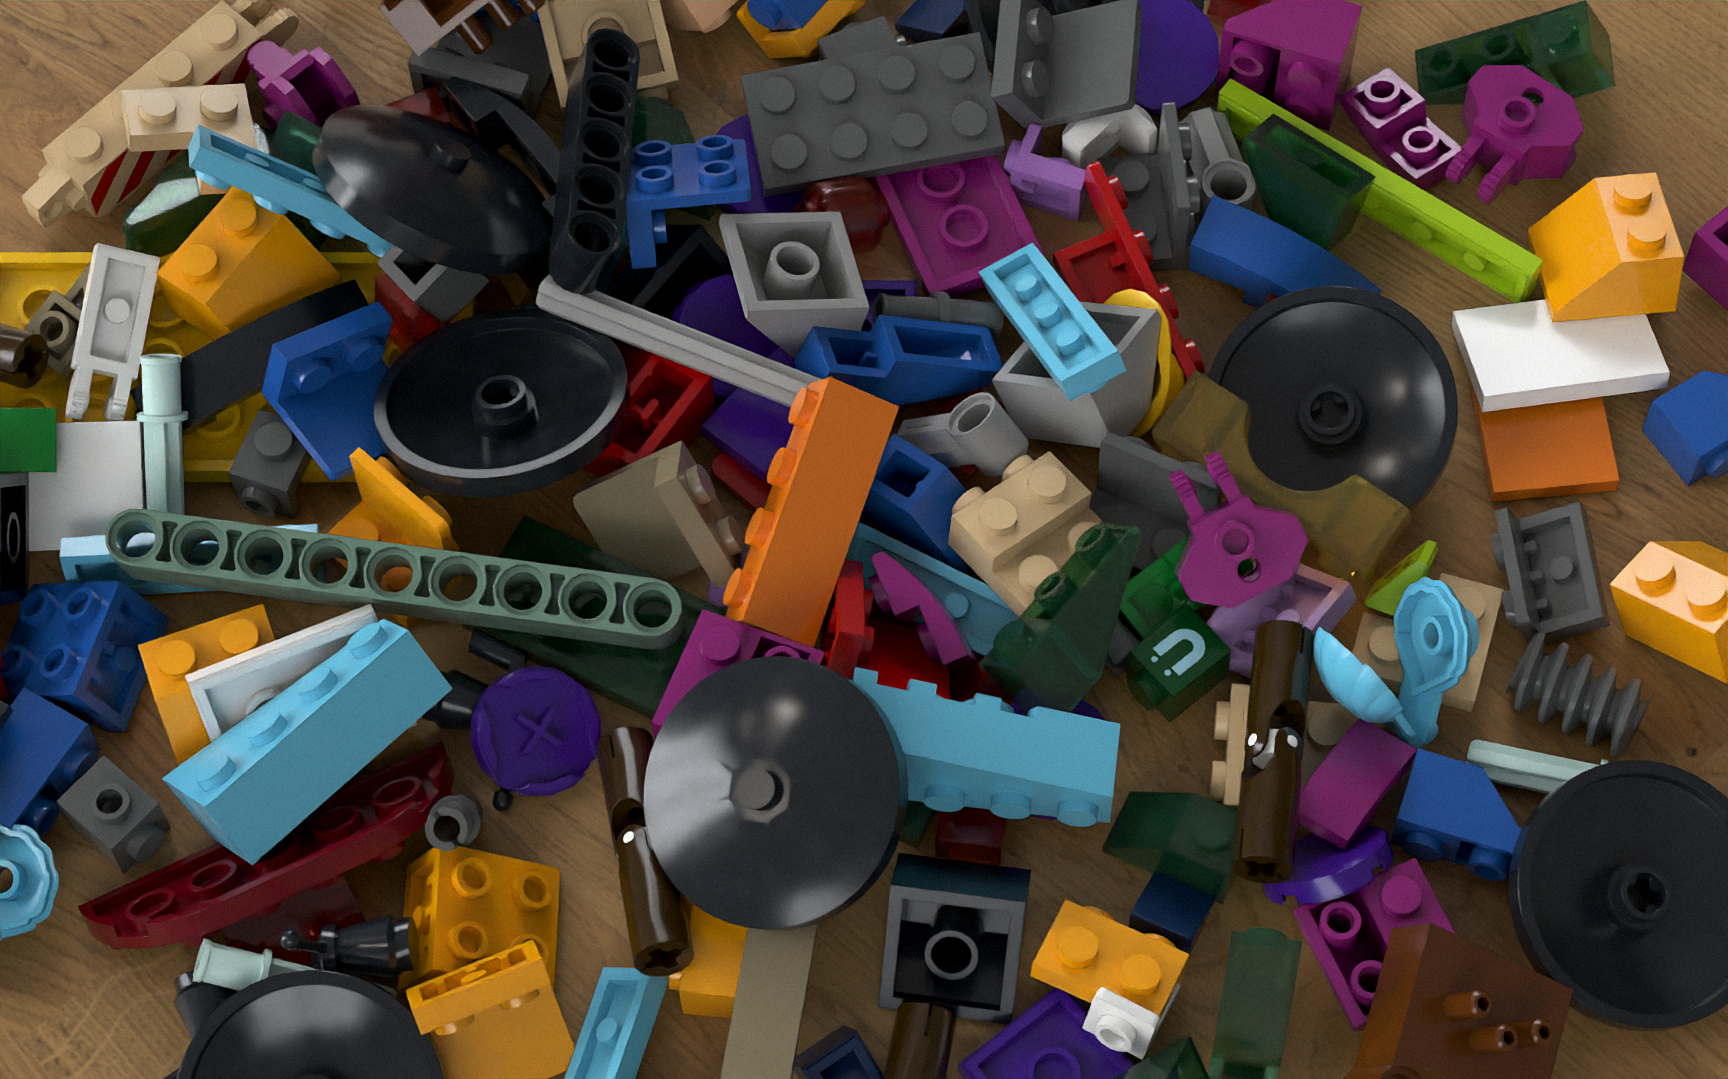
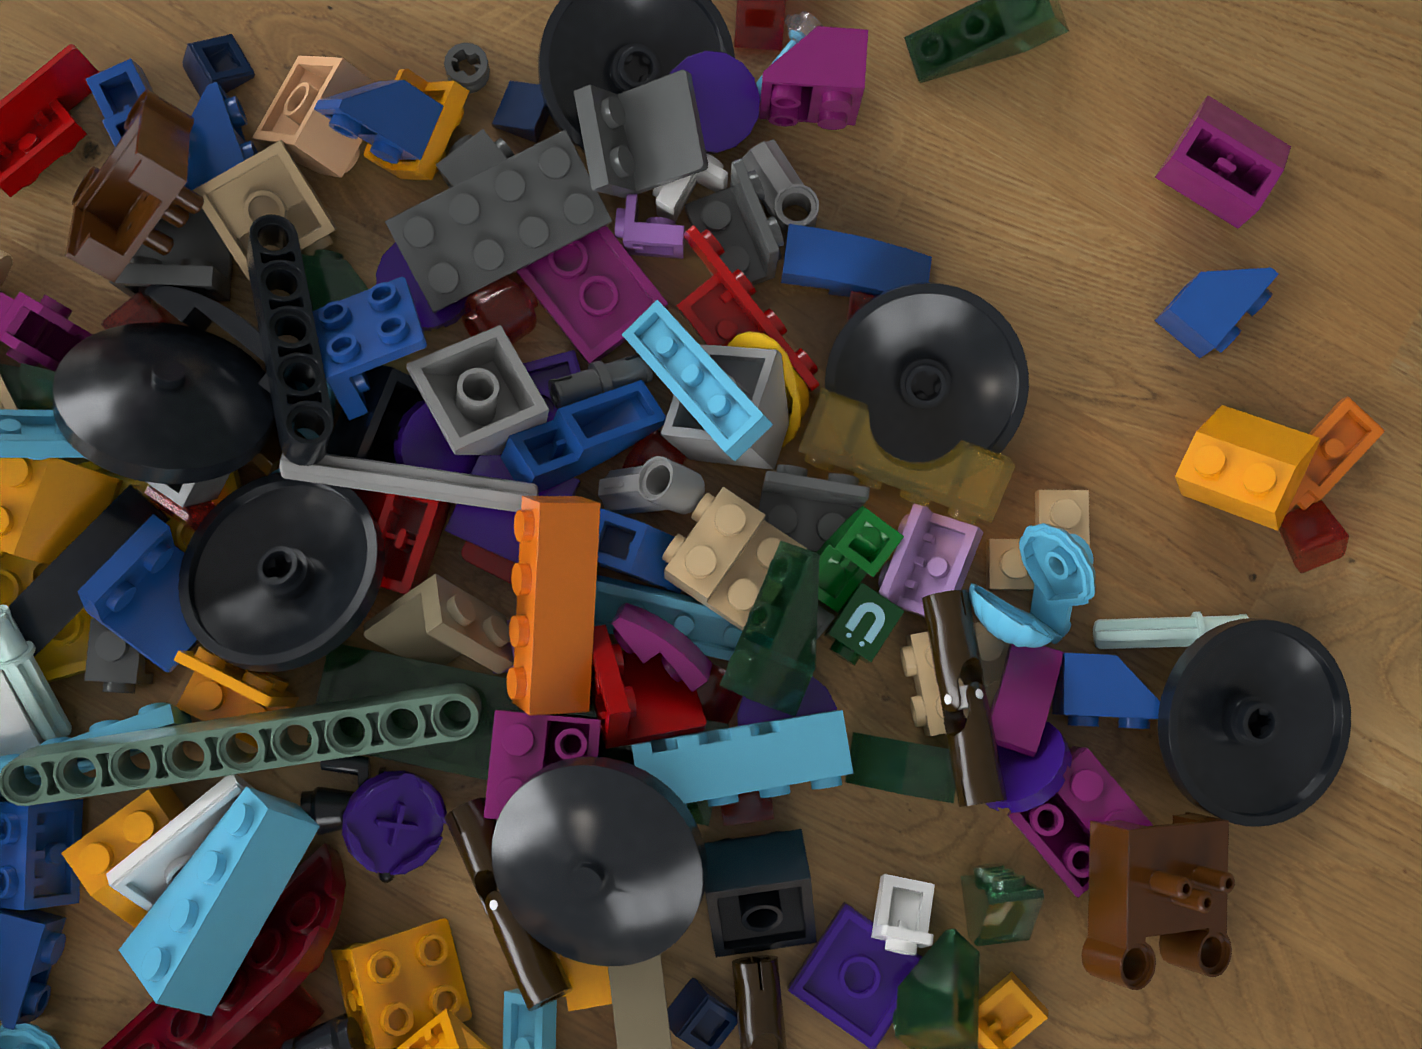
camera: 20 degrees left, 20 degrees up
(114, 815) = (92, 982): dark grey brick -> none
(443, 832) = (355, 926): dark grey pin -> none
(1095, 951) = (882, 890): light orange bracket -> none
(1172, 911) = (910, 822): dark blue slope -> none
(1231, 534) = (888, 534): magenta hinge -> none
(1305, 182) = (855, 189): clear green slope -> none
(1390, 587) = (1016, 509): lime slope -> none
(1397, 128) = (911, 114): magenta slope -> none
(1406, 207) = (910, 176): lime tile -> none
(1513, 134) = (1003, 95): magenta hinge -> none
(1528, 360) = (1082, 276): white tile -> none
(1546, 449) = (1085, 349): orange tile -> none
(1550, 572) = (1121, 468): dark grey bracket -> none
(1578, 695) = (1168, 564): dark grey piece -> none
(1609, 251) = (1102, 183): light orange slope -> none

